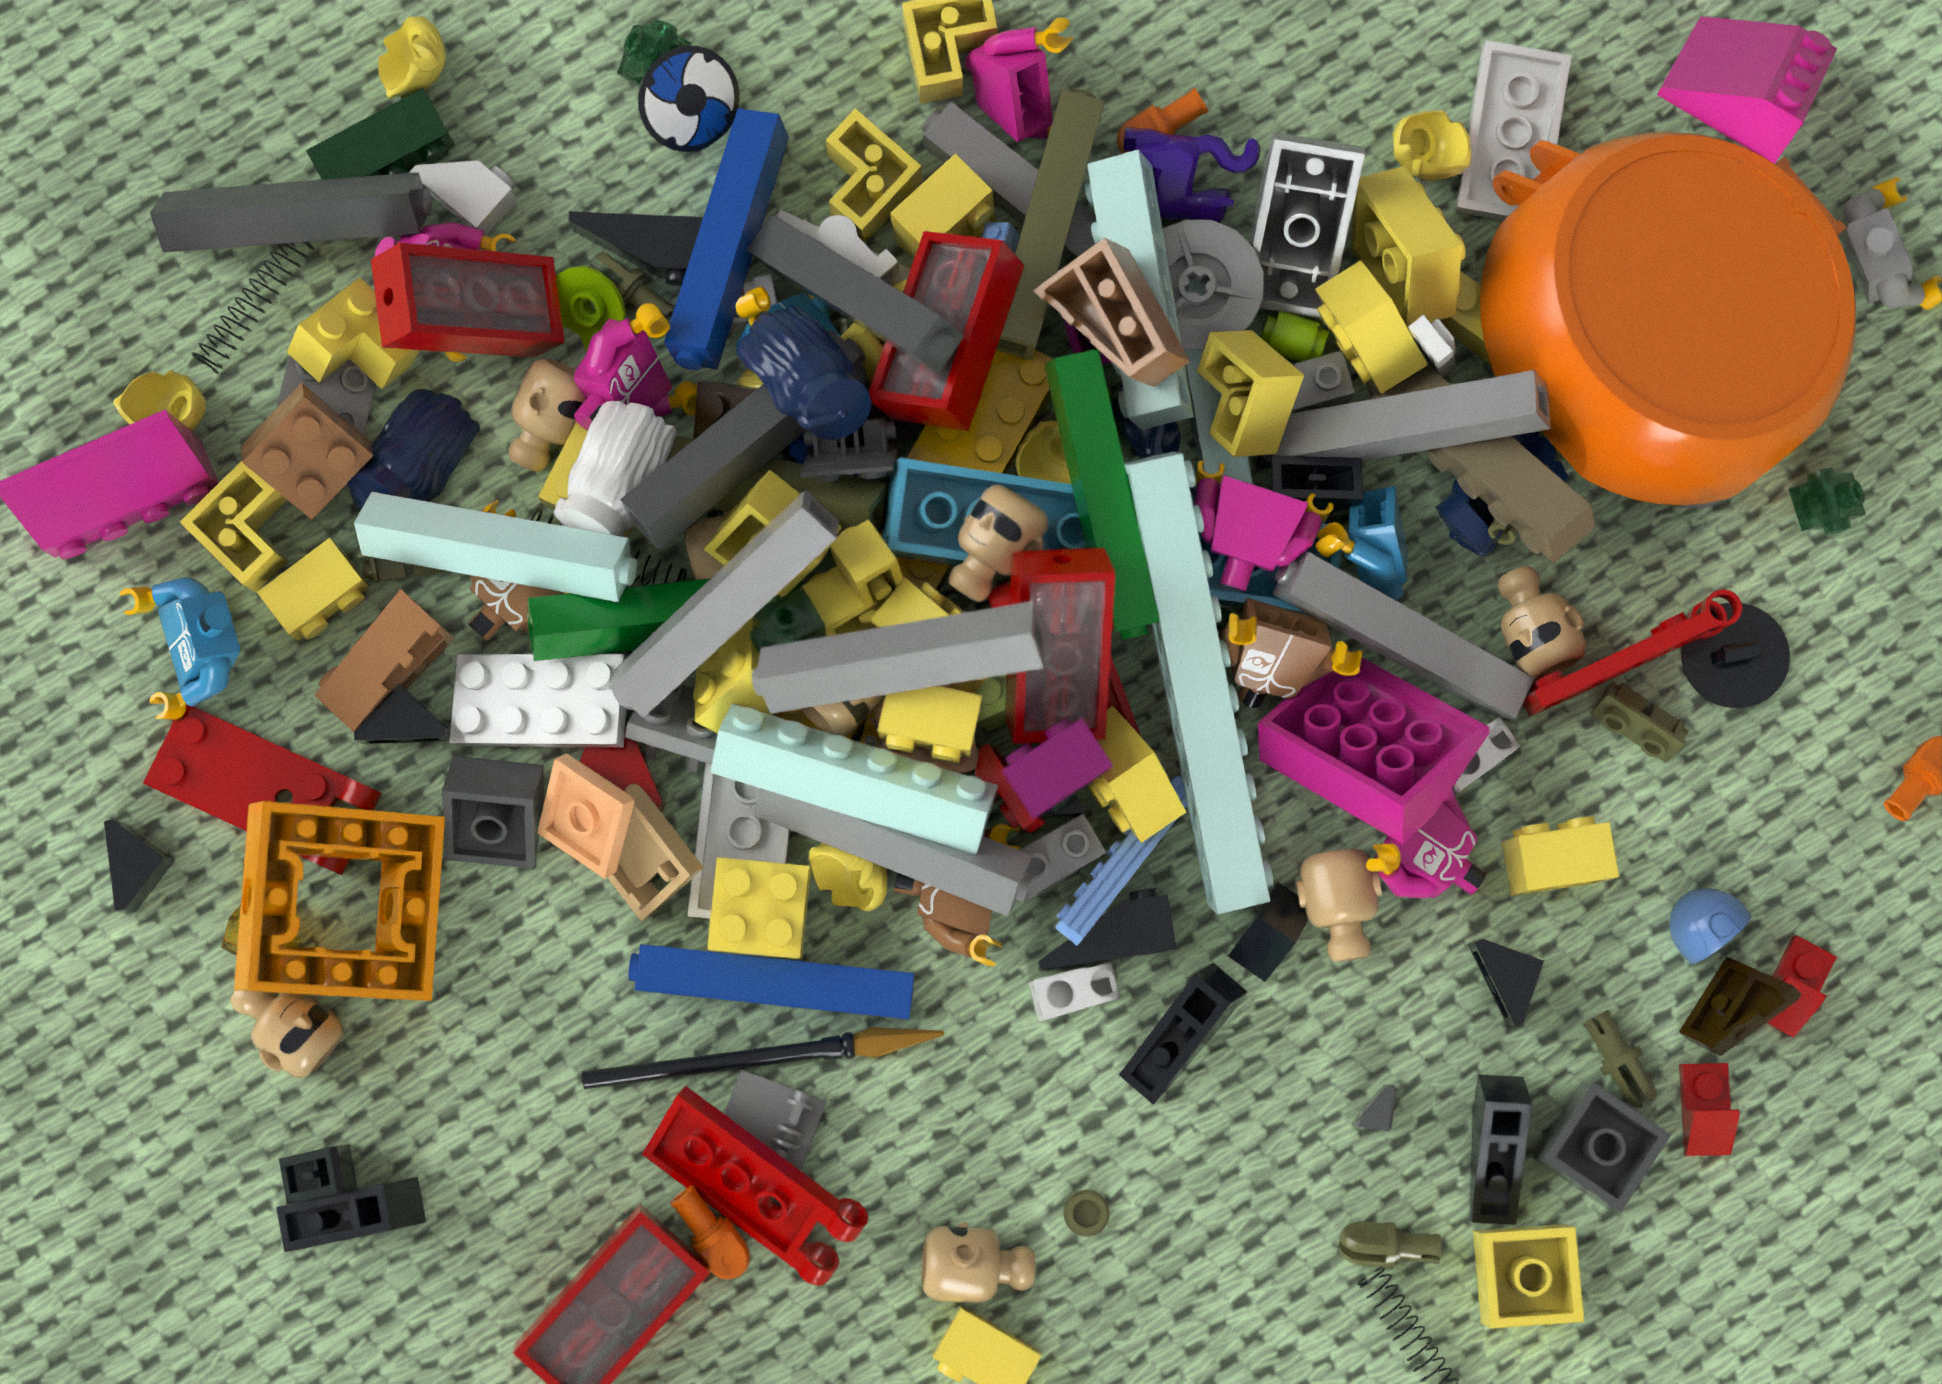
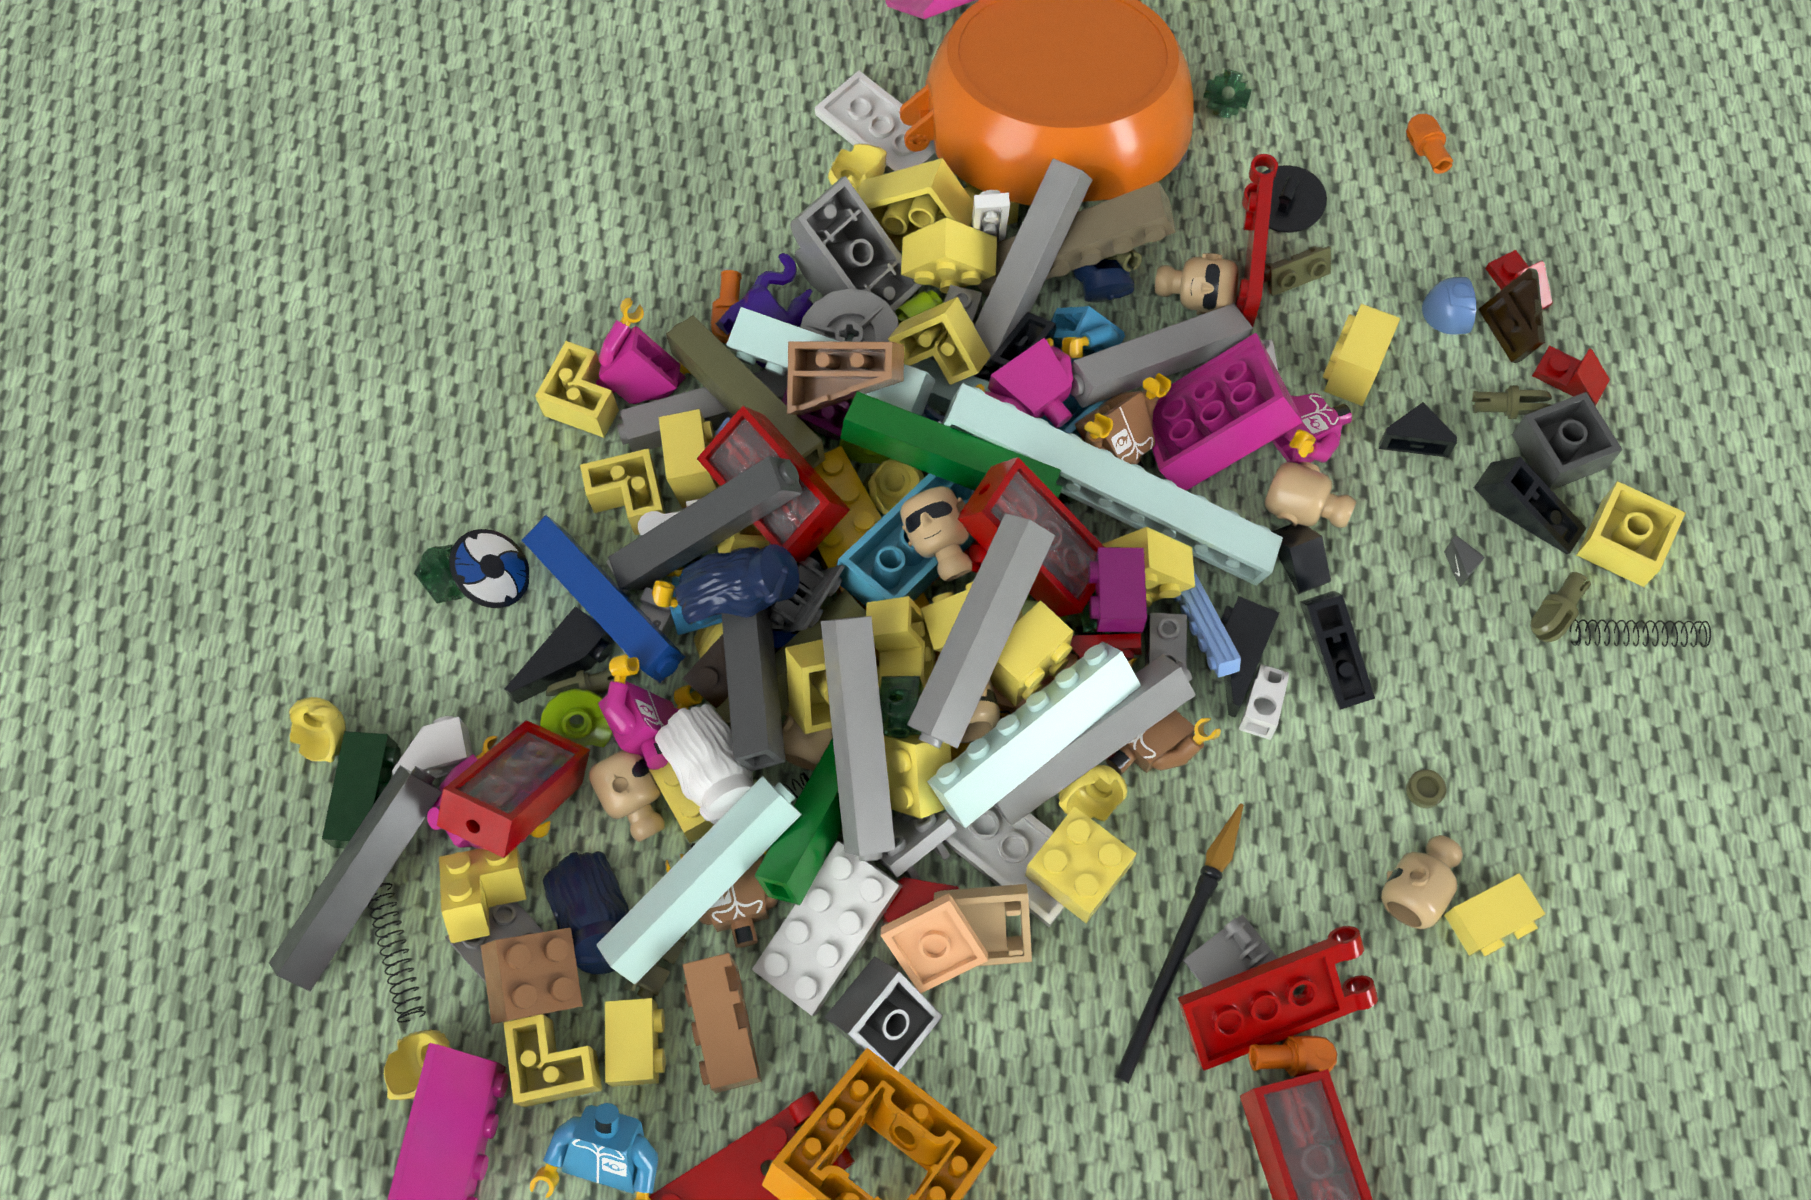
camera: 50 degrees left, 15 degrees down
(401, 720) = (773, 1037): black slope -> none
(772, 981) = (1133, 896): blue brick -> none

